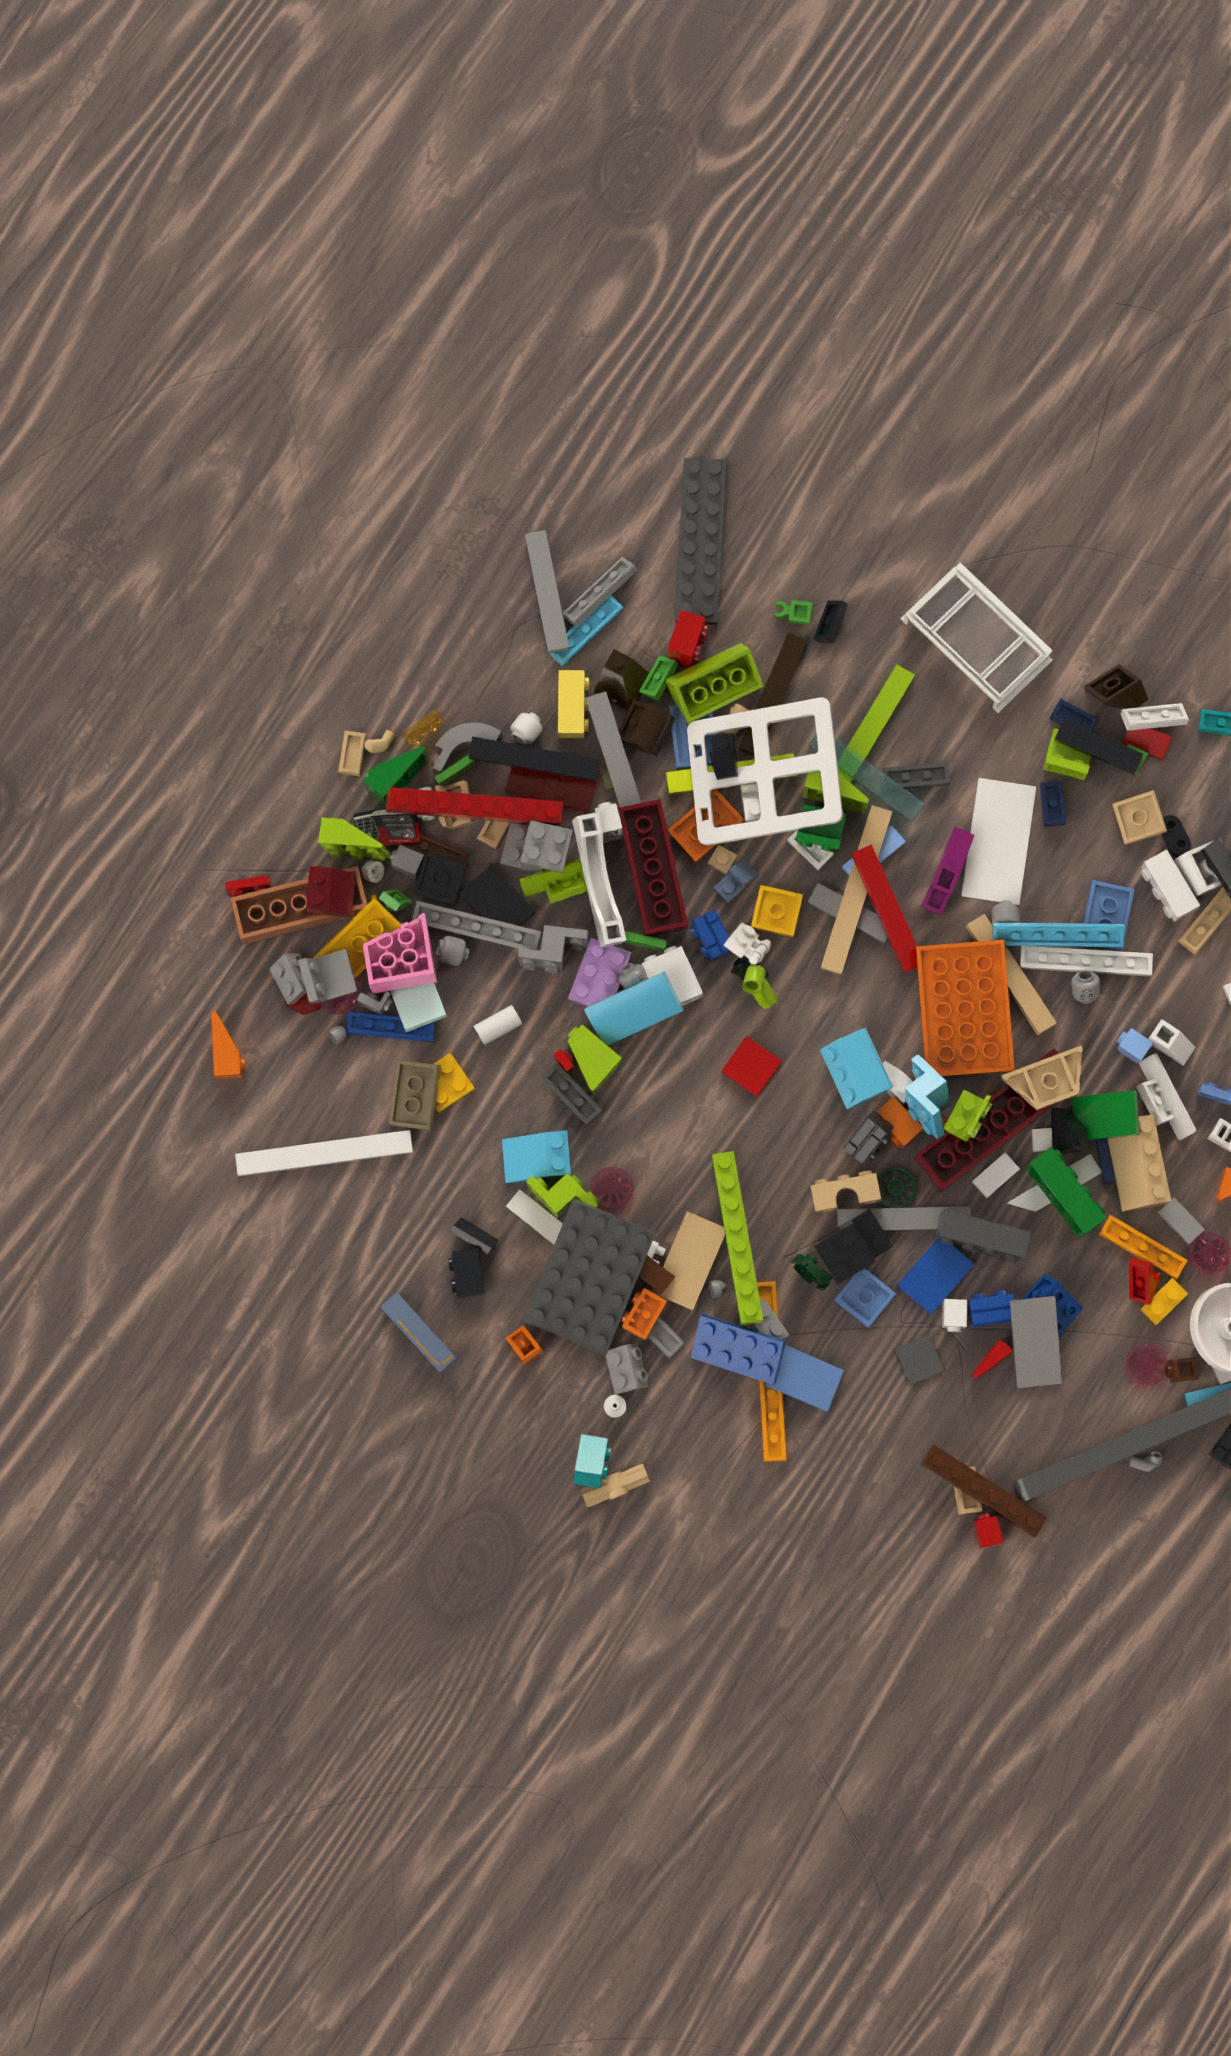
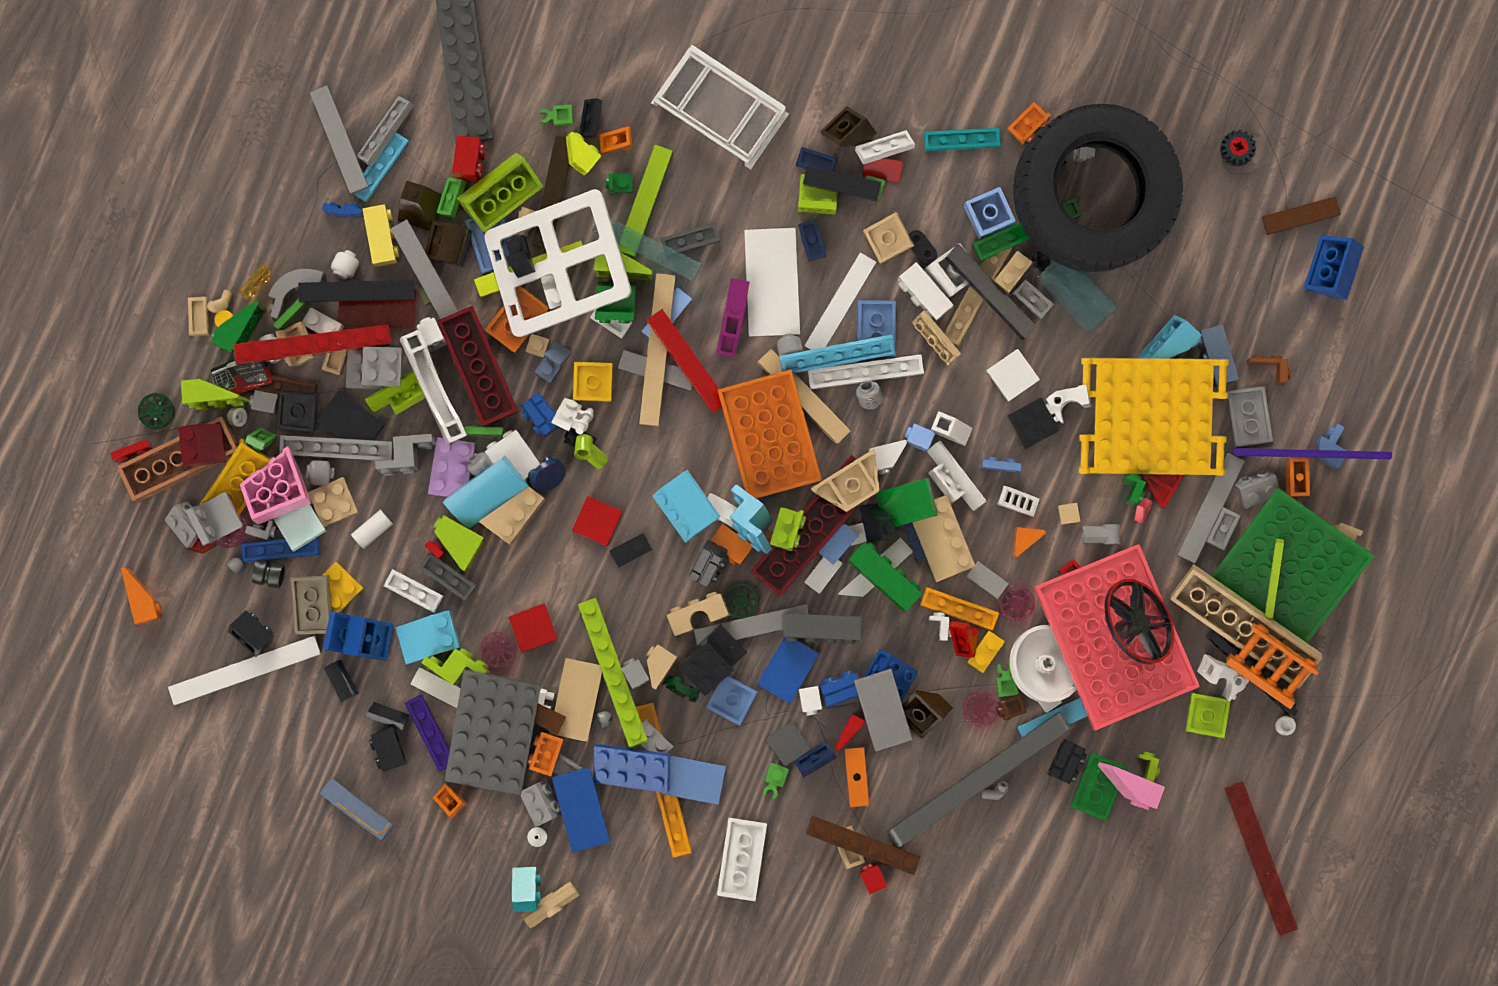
camera: 15 degrees left, 5 degrees up
(284, 847) = (155, 410): none -> dark green wheel
(340, 1112) = (251, 633): none -> black brick
(371, 1050) = (267, 573): none -> pearl dark grey wheel
(378, 758) = (222, 316): none -> yellow tile
(429, 1186) = (341, 680): none -> black brick
(459, 1139) = (358, 636): none -> blue bracket
(460, 986) = (333, 502): none -> tan plate
(483, 784) = (320, 323): none -> white plate
(517, 1263) = (429, 731): none -> dark purple tile
(530, 1103) = (413, 591): none -> white tile
(542, 671) = (348, 211): none -> blue slope
(656, 1171) = (533, 628): none -> red tile
(659, 1041) = (514, 515): none -> tan wedge
(670, 1385) = (580, 809): none -> blue tile
(706, 1003) = (547, 475): none -> dark blue tile
(763, 1244) = (635, 673): none -> light grey brick
(783, 1106) = (631, 550): none -> black plate
(792, 1239) = (659, 664): none -> tan slope
(812, 658) = (580, 154): none -> neon yellow slope
(842, 1478) = (741, 859): none -> white plate
(849, 699) = (619, 183): none -> green bracket
(855, 651) = (616, 140): none -> orange slope
(899, 1394) = (776, 777): none -> bright green plate
(947, 1382) = (815, 759): none -> dark blue plate
(991, 1398) = (856, 789): none -> orange tile
(1019, 1146) = (838, 544): none -> medium blue tile
(1072, 878) = (841, 302): none -> white sticker
(1083, 1353) = (925, 711): none -> dark brown slope
(1095, 1057) = (888, 455): none -> white slope
(1122, 1265) = (944, 631): none -> white bracket
(1173, 938) = (936, 337): none -> tan tile
(1181, 1342) = (1005, 684): none -> bright green plate

